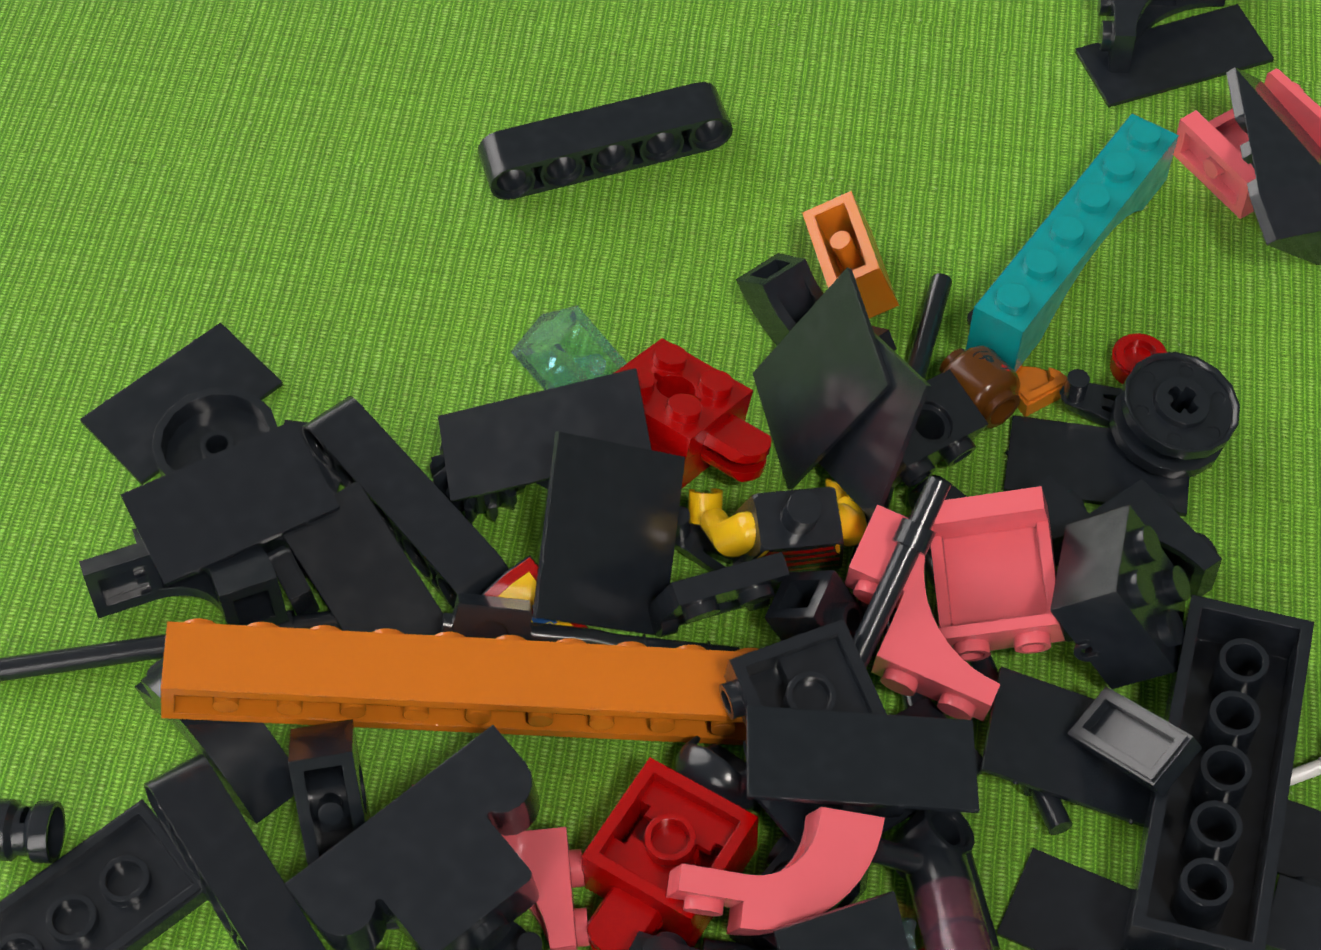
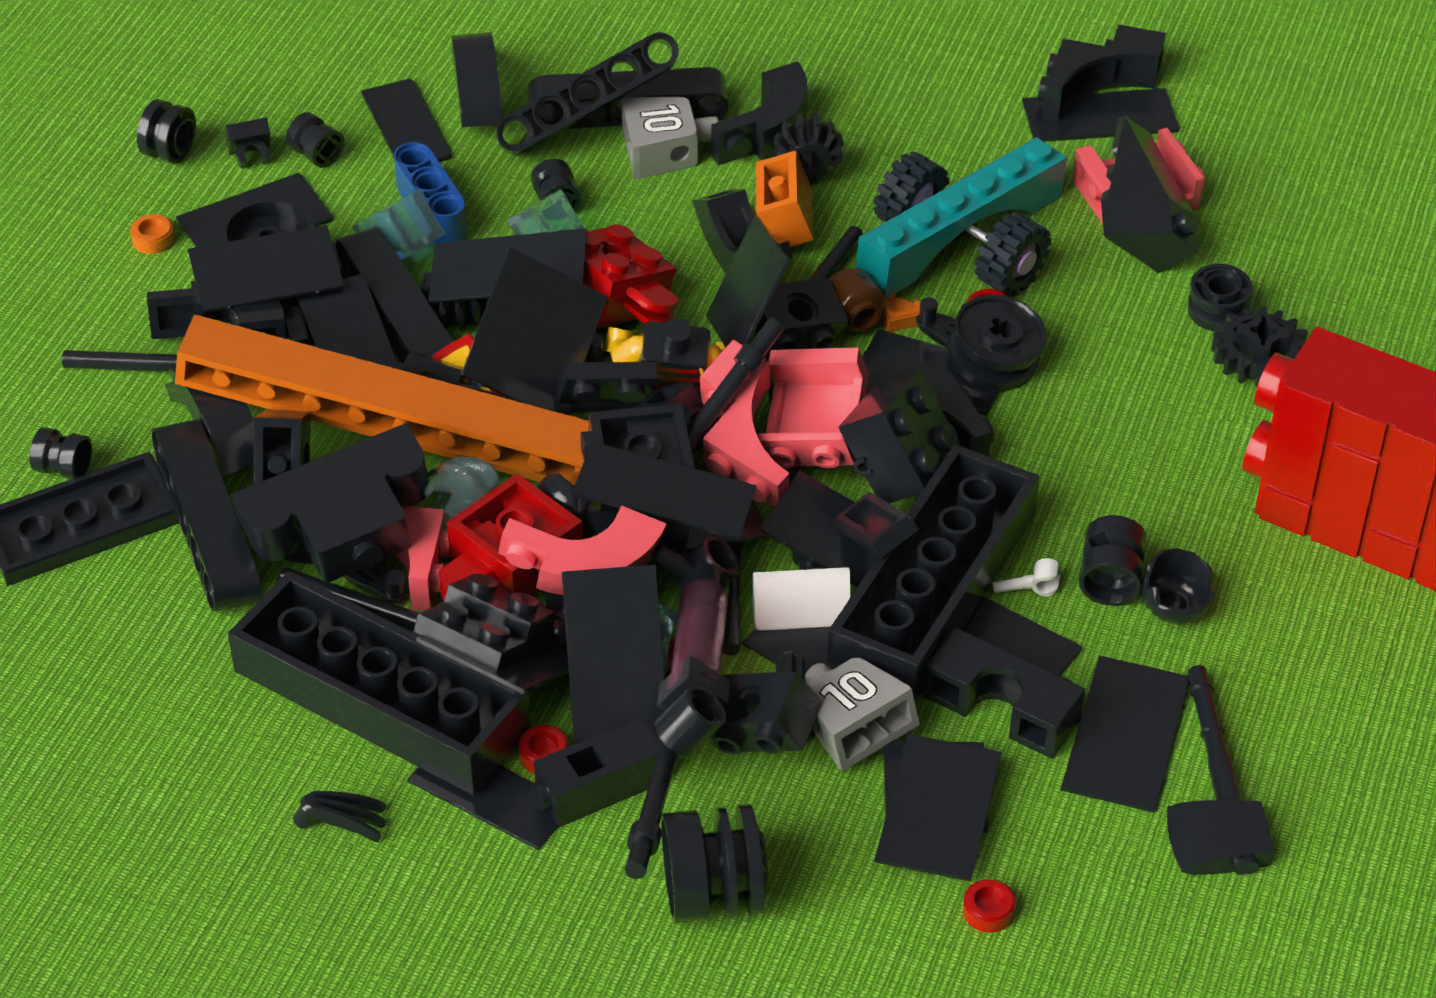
camera: 10 degrees right, 10 degrees down
(37, 300) = (166, 131): none -> black wheel
(56, 453) = (152, 233): none -> orange tile
(144, 288) = (246, 137): none -> black tile
(235, 277) = (318, 141): none -> black wheel
(336, 226) = (404, 117): none -> black piece
(383, 382) = (407, 225): none -> clear light blue slope
(401, 330) = (420, 170): none -> blue beam
(414, 151) = (476, 79): none -> black arch
(553, 284) = (555, 175): none -> black wheel
(580, 792) = (460, 483): none -> clear light blue hair
(589, 147) = (602, 79): none -> black beam
(665, 185) = (662, 134): none -> light grey torso
(795, 154) = (753, 132): none -> black arch
(821, 378) = (729, 263): black piece -> none
(856, 166) = (814, 141): none -> black gear
(1007, 219) = (1010, 252): none -> black axle
(1060, 860) = (799, 598): none -> white slope

